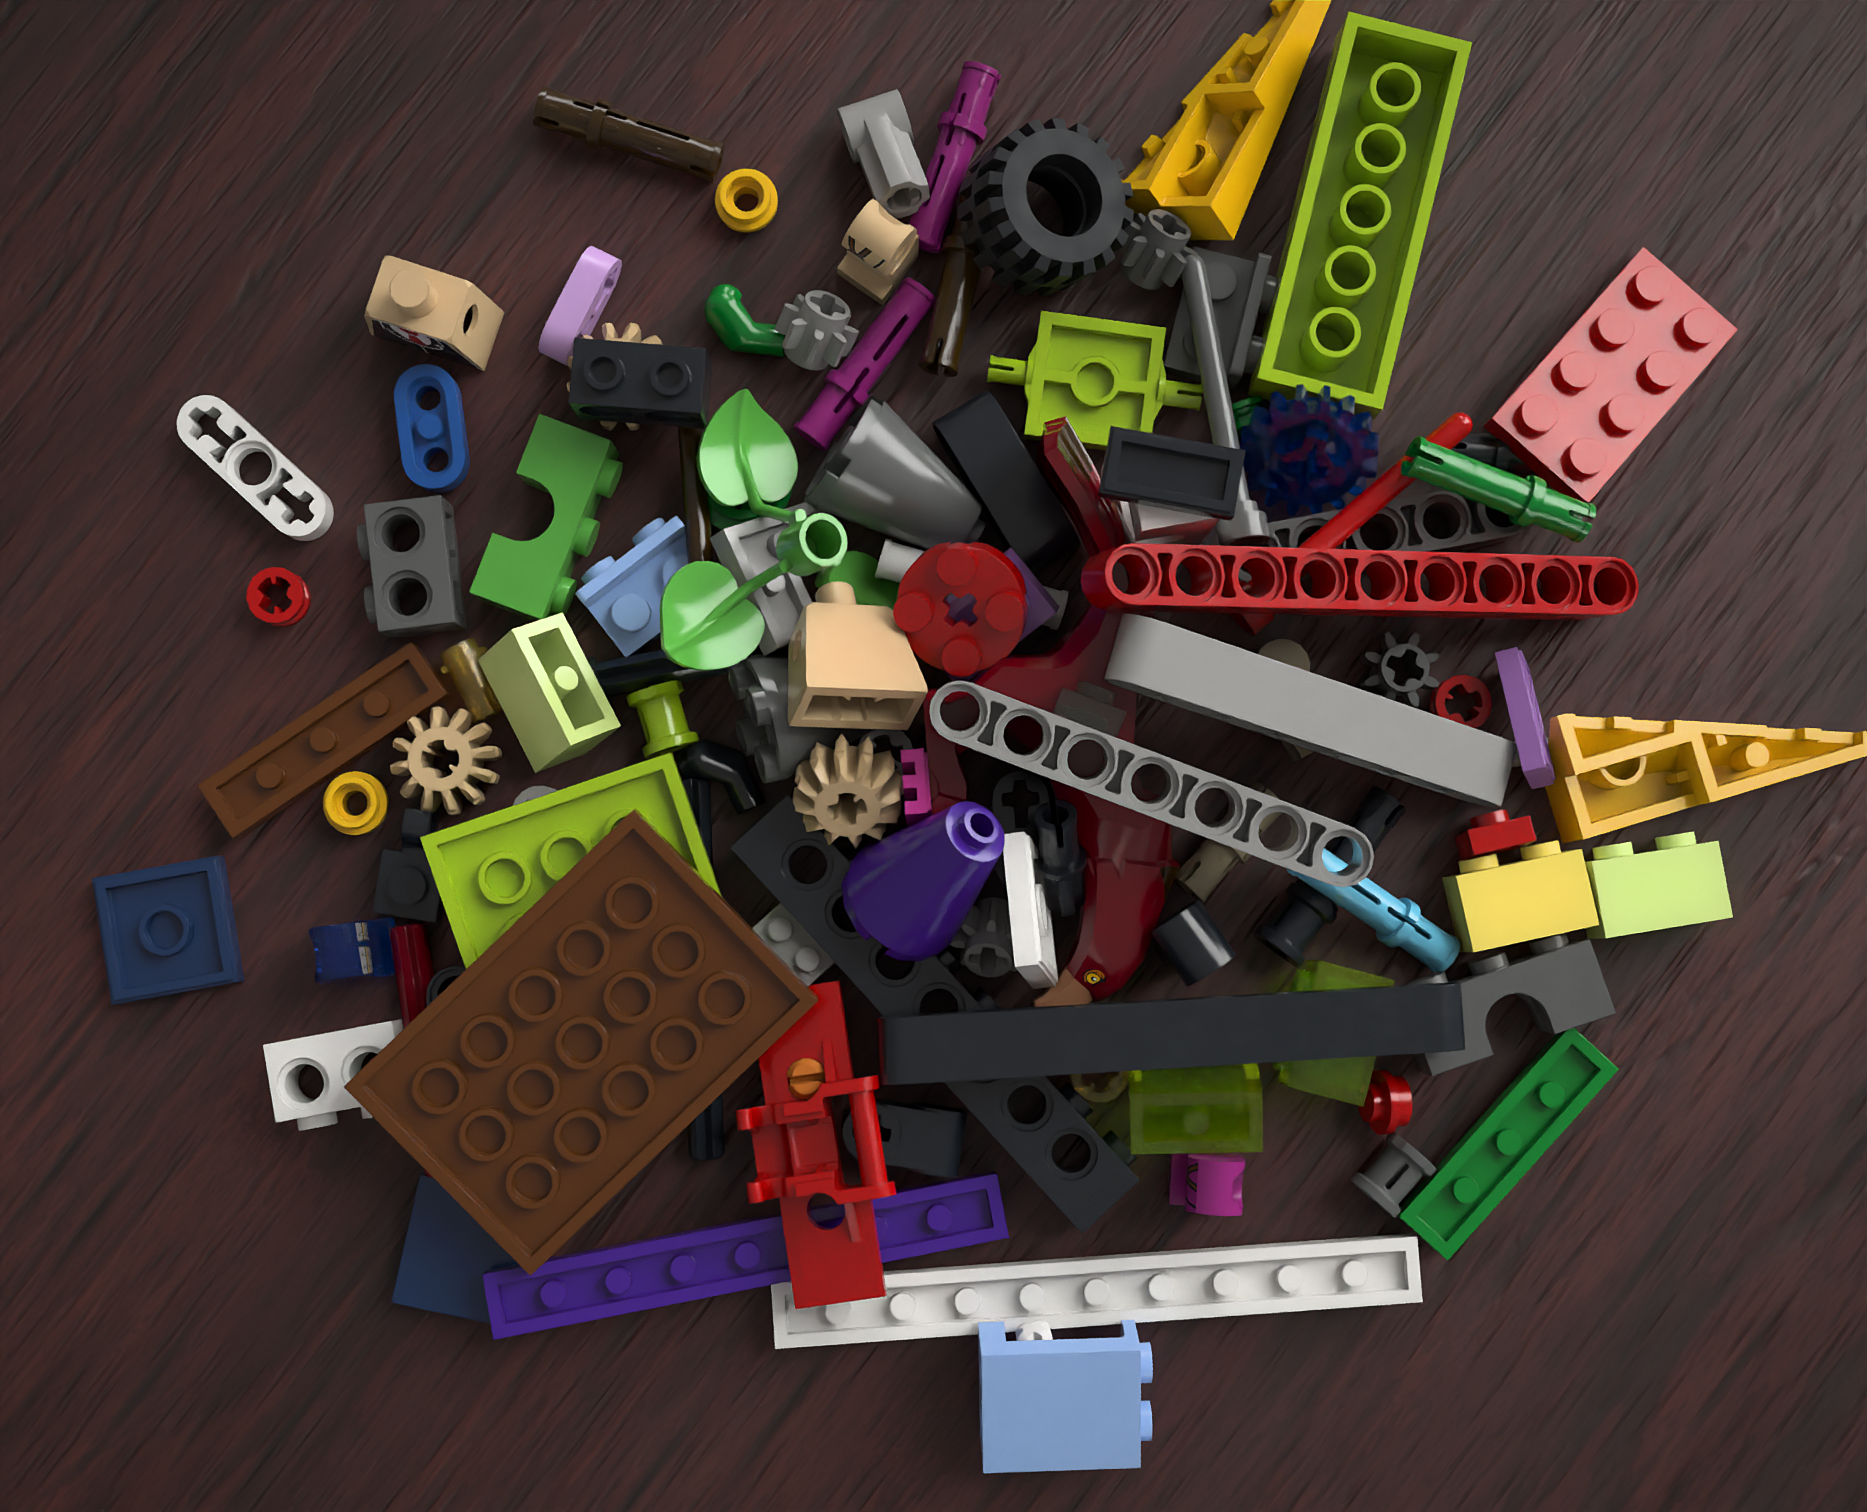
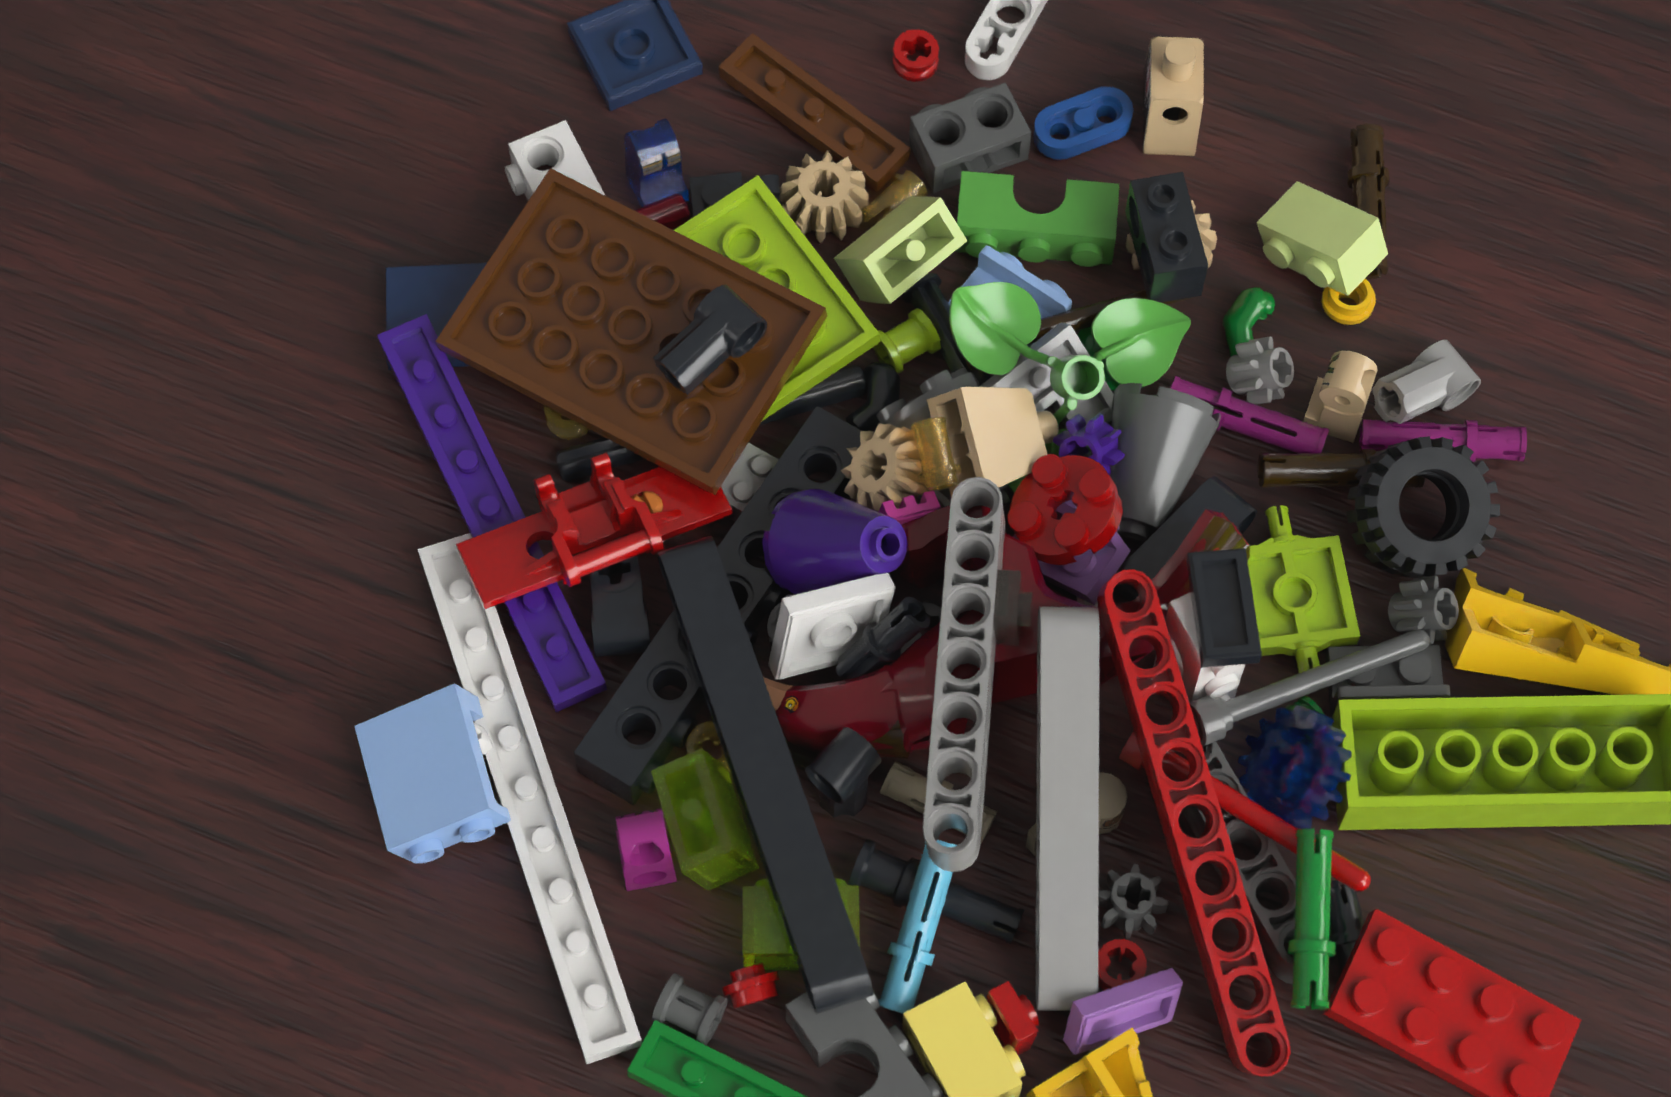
camera: 80 degrees right, 20 degrees down
(336, 801) = (771, 134): yellow plate -> none
(580, 303) = (1227, 199): lavender beam -> none
(635, 943) = (720, 328): none -> black piece
(675, 205) = (1322, 238): none -> yellowish green brick
(864, 736) = (935, 454): none -> clear yellow pin
(879, 554) = (1095, 434): none -> dark purple gear

